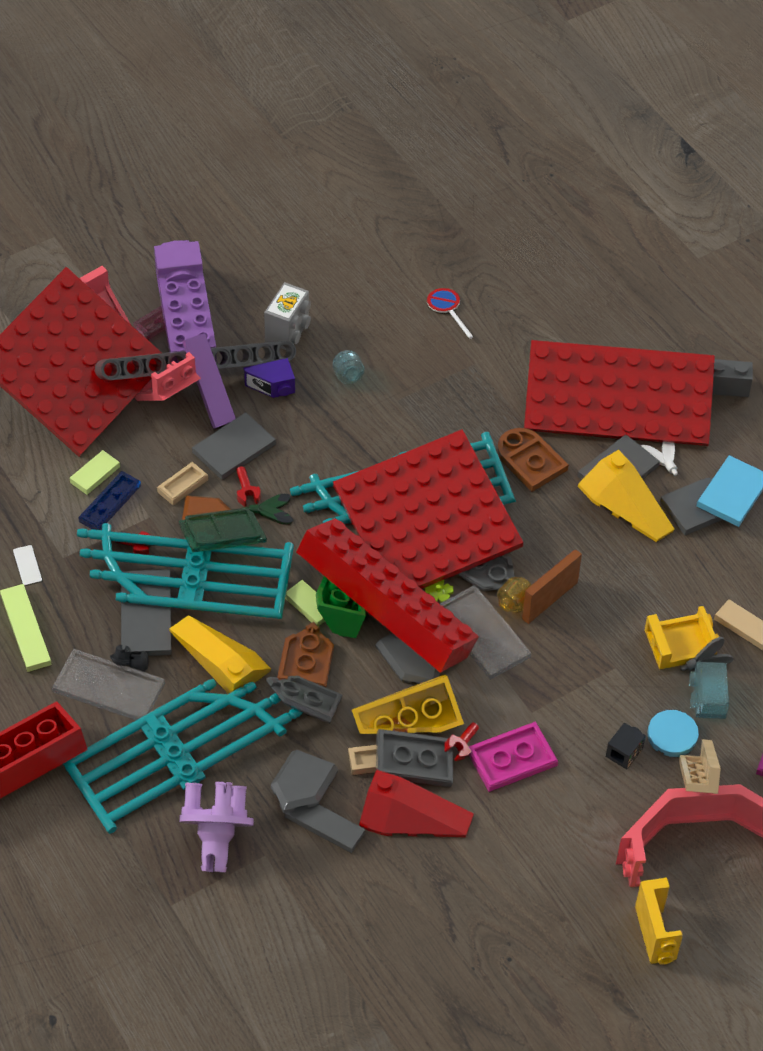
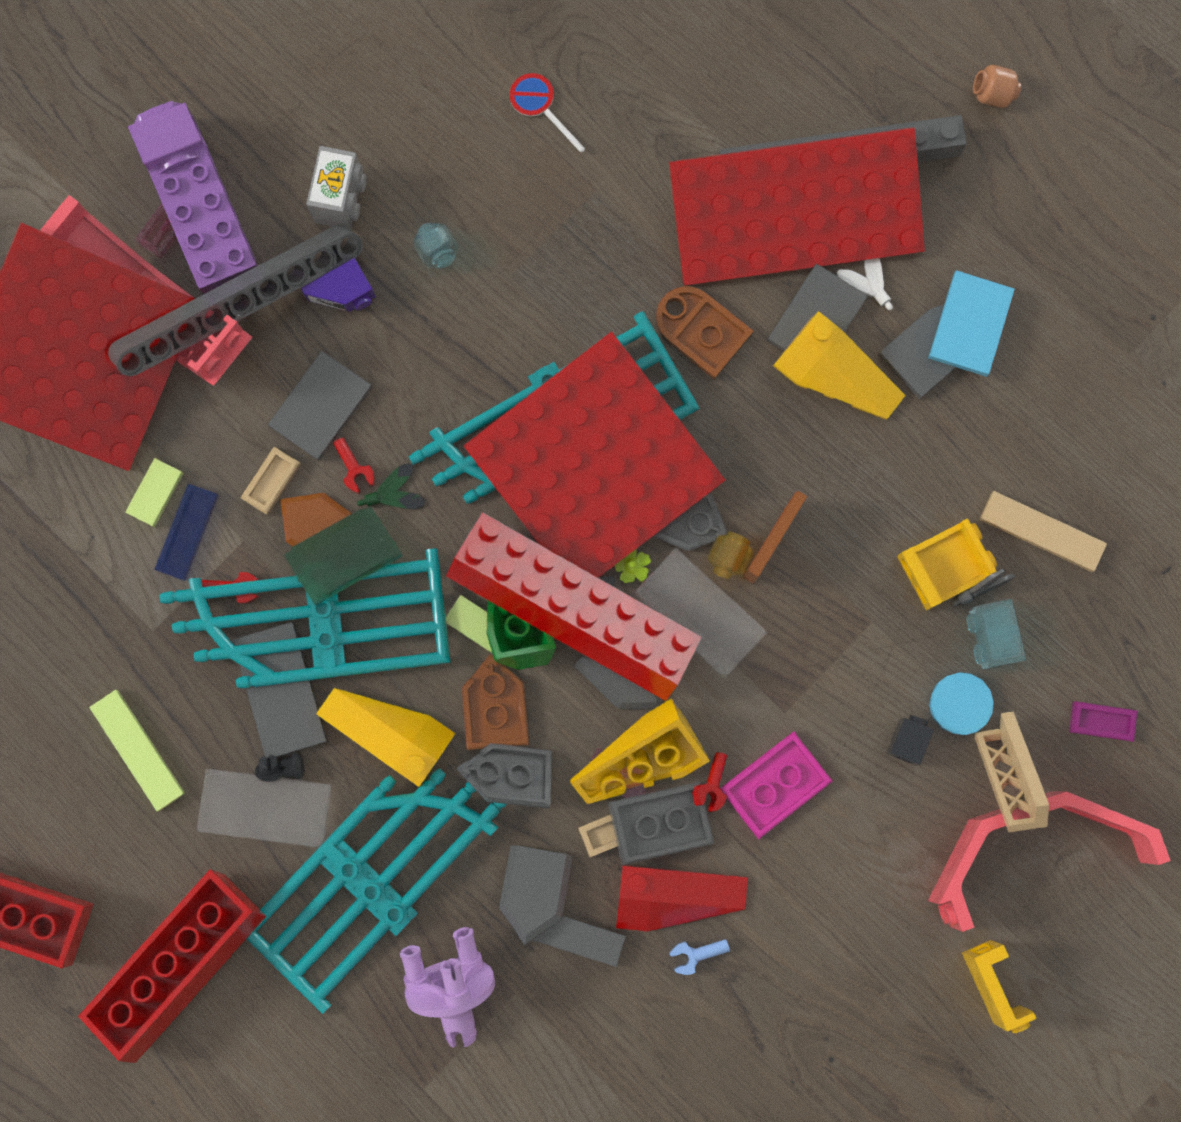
camera: 10 degrees left, 30 degrees up
(27, 565) = (111, 653): white sticker -> none
(210, 384) = (262, 326): medium lavender tile -> none
(417, 857) = (697, 954): none -> light blue bar

